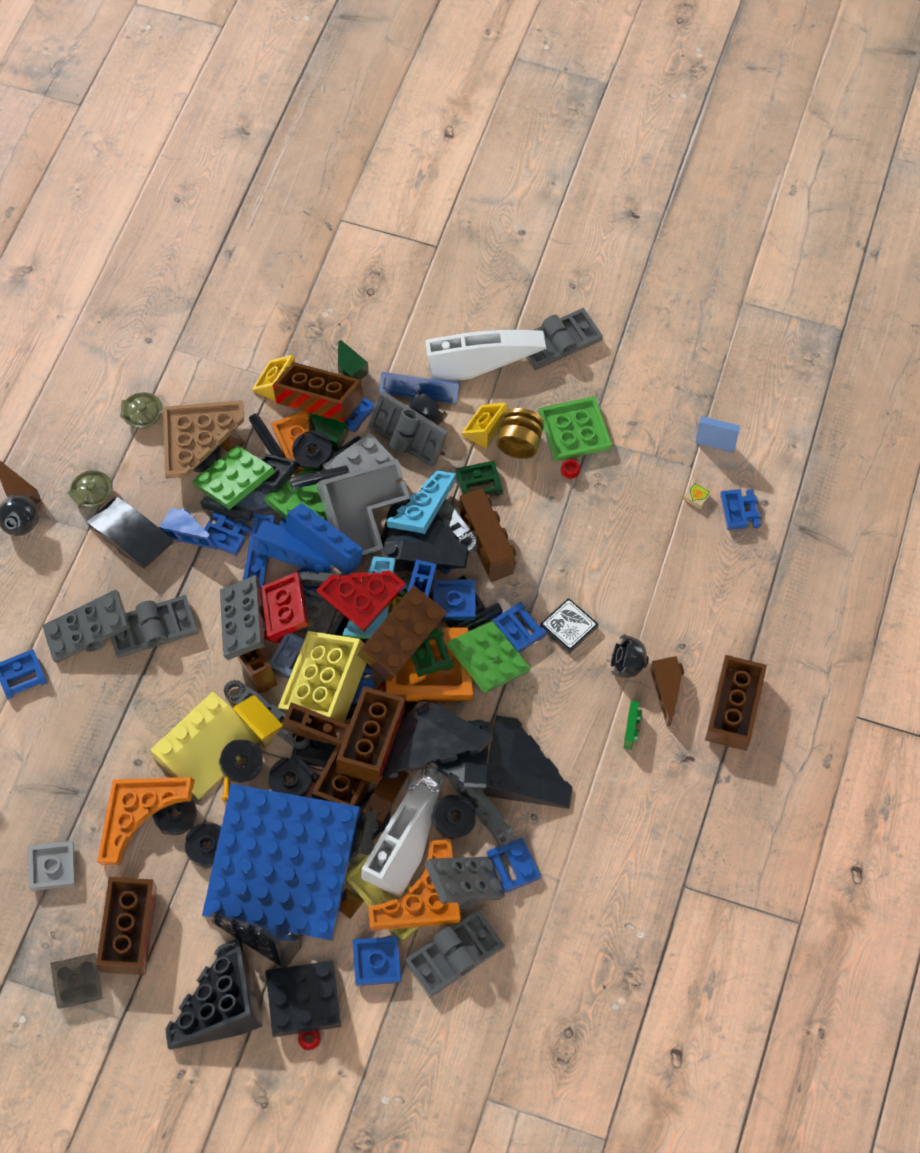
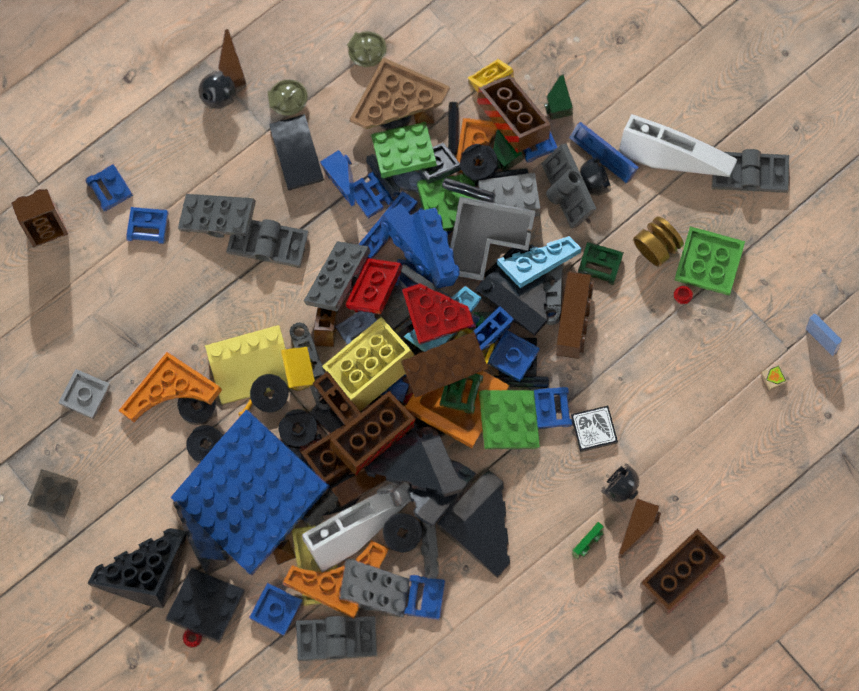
camera: 40 degrees right, 10 degrees up
(126, 926) = (110, 473): reddish brown brick -> none
(485, 424) = (637, 215): yellow slope -> none
(734, 510) = (796, 406): blue plate -> none

